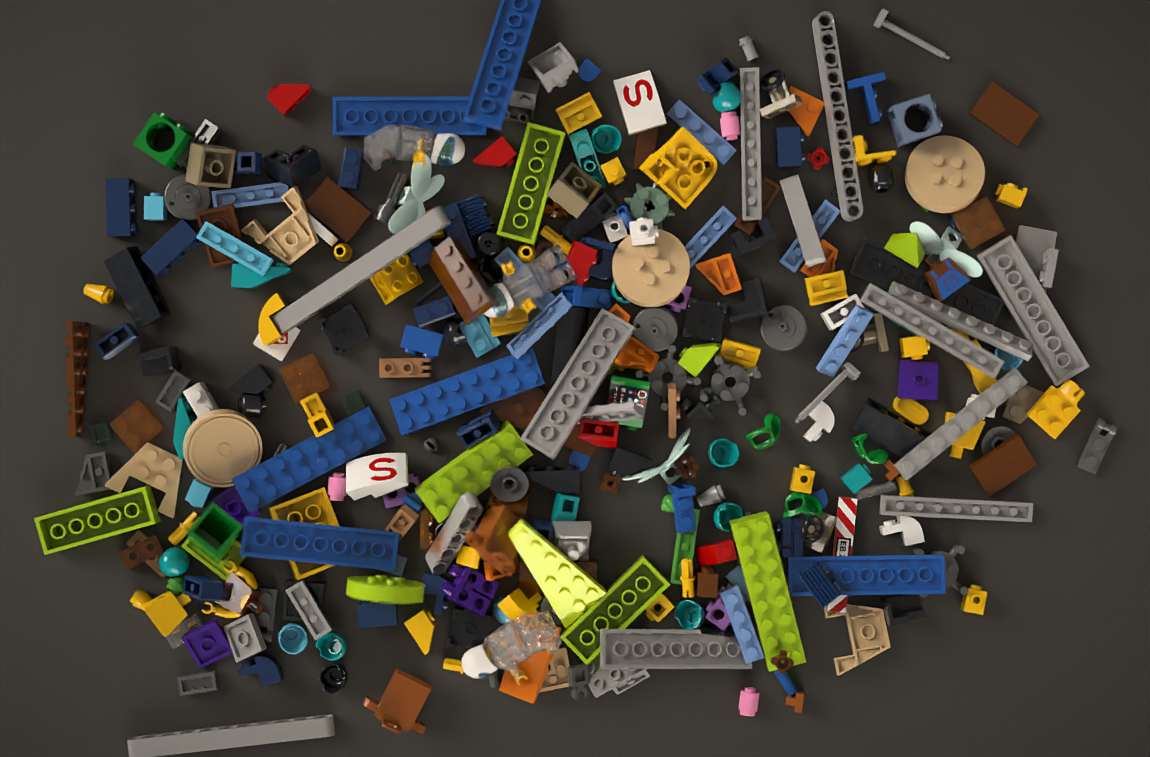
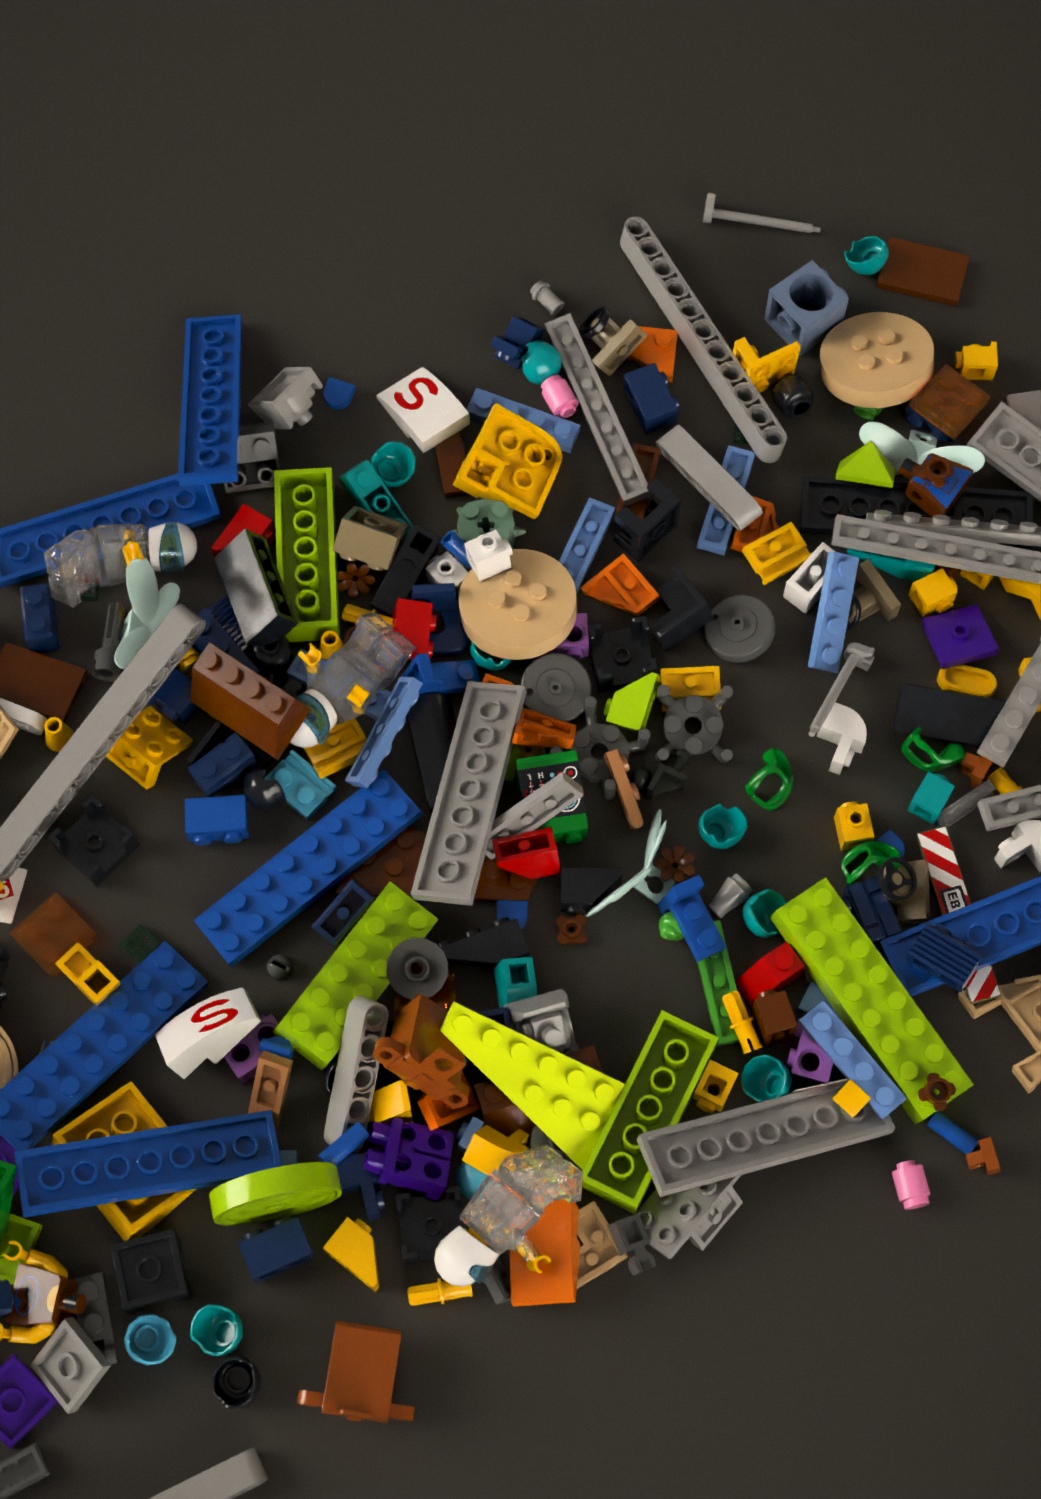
camera: 20 degrees left, 20 degrees down
(267, 666) = (119, 1403): dark blue brick -> none
(309, 609) = (162, 1274): light grey plate -> none
(336, 486) = (152, 1076): bright pink brick -> none
(403, 367) = (203, 869): medium nougat hinge -> none
(425, 536) = (312, 1097): clear orange plate -> none
(433, 572) = (344, 1144): none -> blue hinge
(490, 202) = (255, 589): none -> black brick
(508, 585) = (467, 1131): none -> medium blue plate
(578, 113) = (343, 447): yellow plate -> none
(613, 172) = (418, 502): yellow brick -> none
(733, 645) = (851, 1098): none -> yellow sticker
(824, 159) = (700, 394): red plate -> none
(869, 94) = (726, 291): blue bracket -> none
(952, 275) = (939, 464): none -> reddish brown plate
(971, 92) = (867, 255): none -> teal hair

